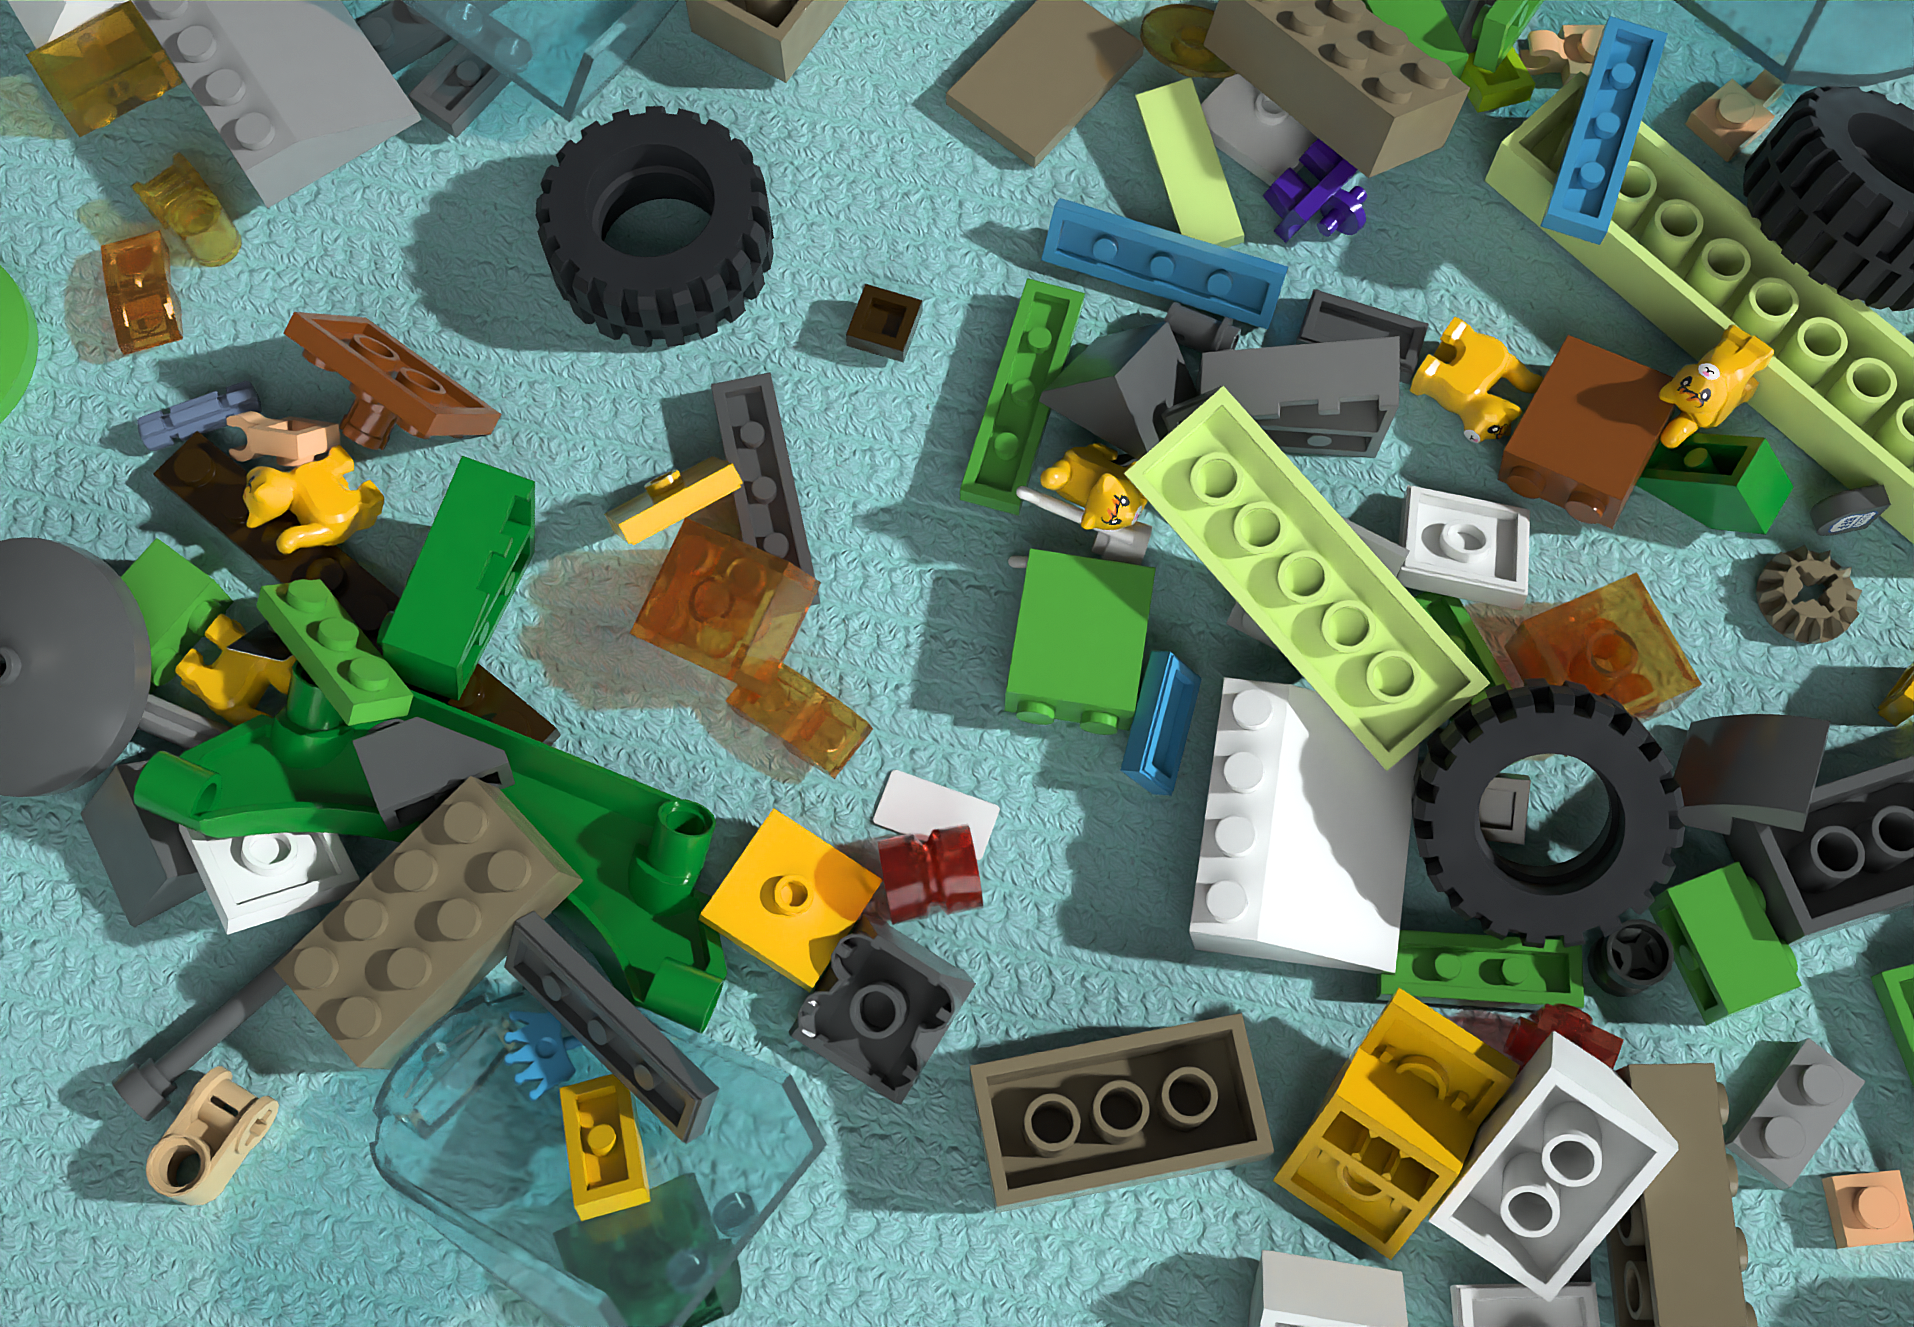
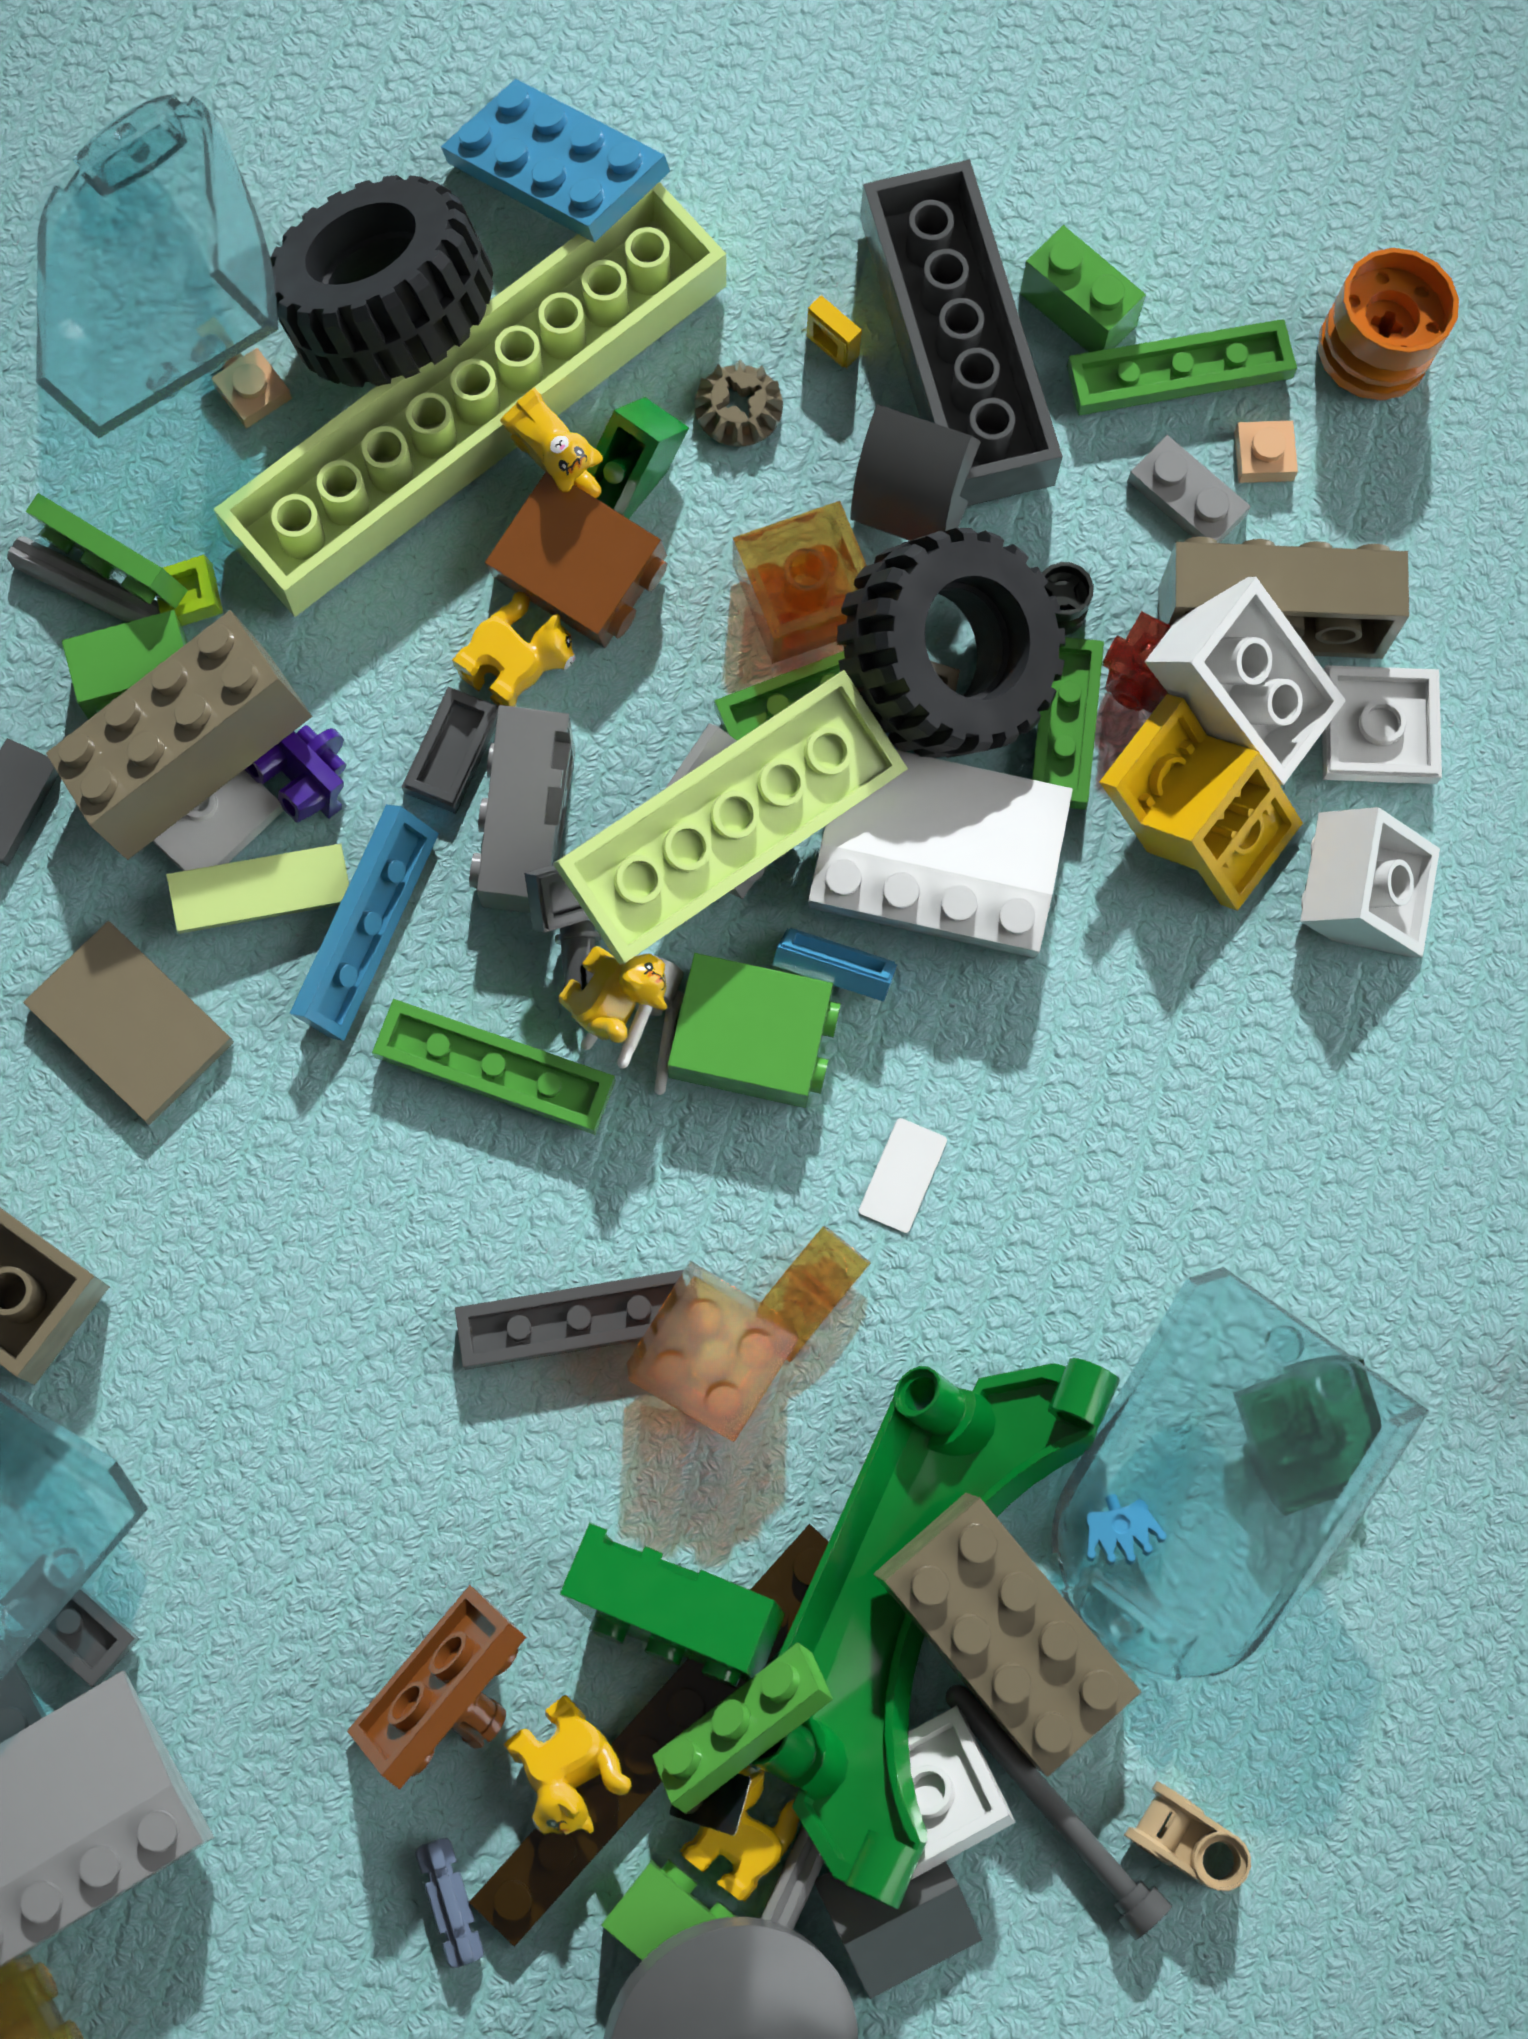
camera: 90 degrees left, 5 degrees up
(141, 292) = (299, 1975): clear orange slope -> none
(190, 212) = (197, 1932): clear yellow piece -> none
(289, 439) = (491, 1802): light nougat plate -> none
(420, 764) = (861, 1639): dark grey slope -> none
(603, 1147) = (1214, 1465): yellow plate -> none
(611, 1028) = (1112, 1459): dark grey tile -> none
(644, 161) = (218, 1370): black tyre -> none
(673, 498) = (593, 1401): yellow plate -> none
(790, 899) = (985, 1305): yellow plate -> none
(882, 1007) = (1083, 1227): dark grey slope -> none
(884, 323) = (404, 1195): dark brown plate -> none
(930, 873) = (969, 1177): clear red wheel -> none
(1119, 1112) = (1189, 1028): dark tan brick -> none
(1124, 387) = (501, 969): dark grey slope -> none
(1176, 39) = (108, 885): clear yellow dish -> none
(1201, 331) = (439, 895): dark grey pin -> none
(1465, 547) = (680, 682): white plate -> none
(1562, 53) = (162, 508): light nougat plate -> none
(1604, 130) = (290, 495): dark azure plate -> none
(1725, 942) = (1055, 519): bright green brick -> none
(1849, 510) = (666, 355): dark grey tile -> none

